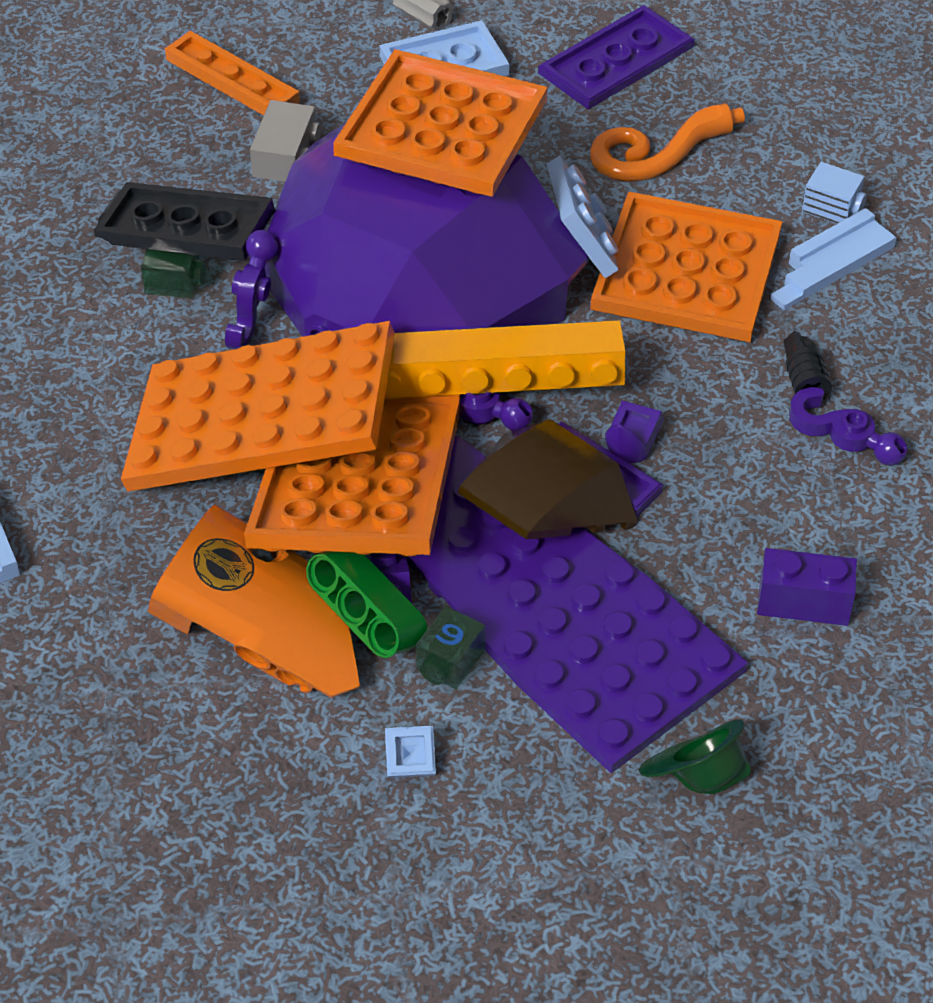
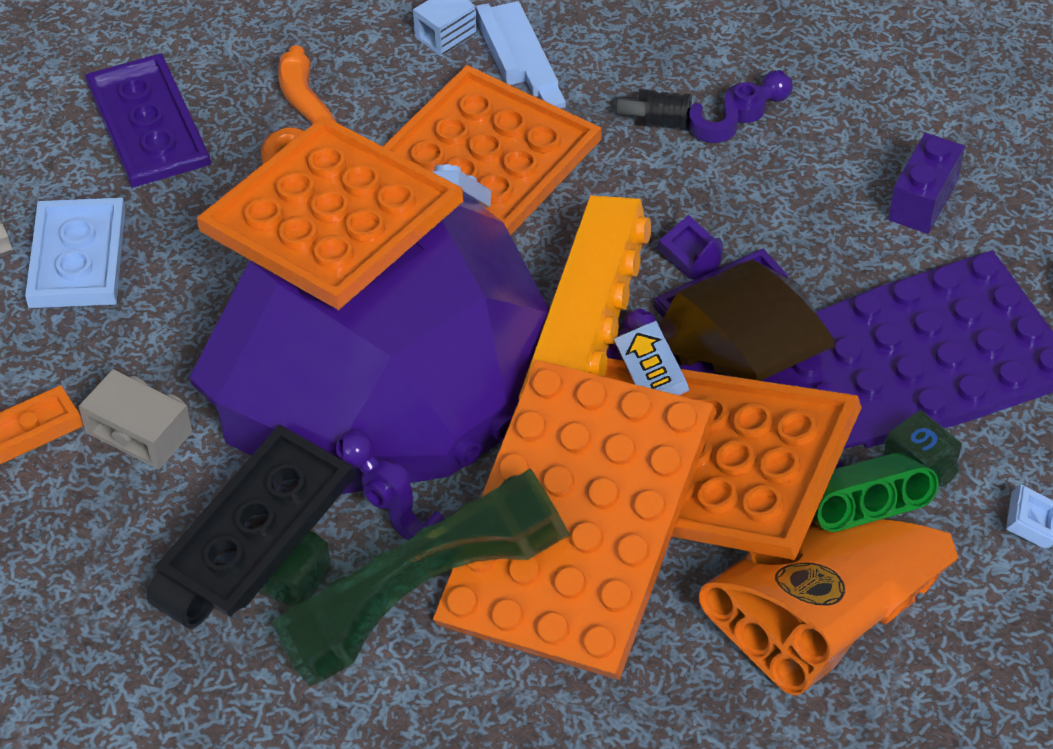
camera: 70 degrees left, 0 degrees up
(115, 301) = (333, 625): none -> clear green arch
(445, 415) = (651, 360): none -> light blue tile

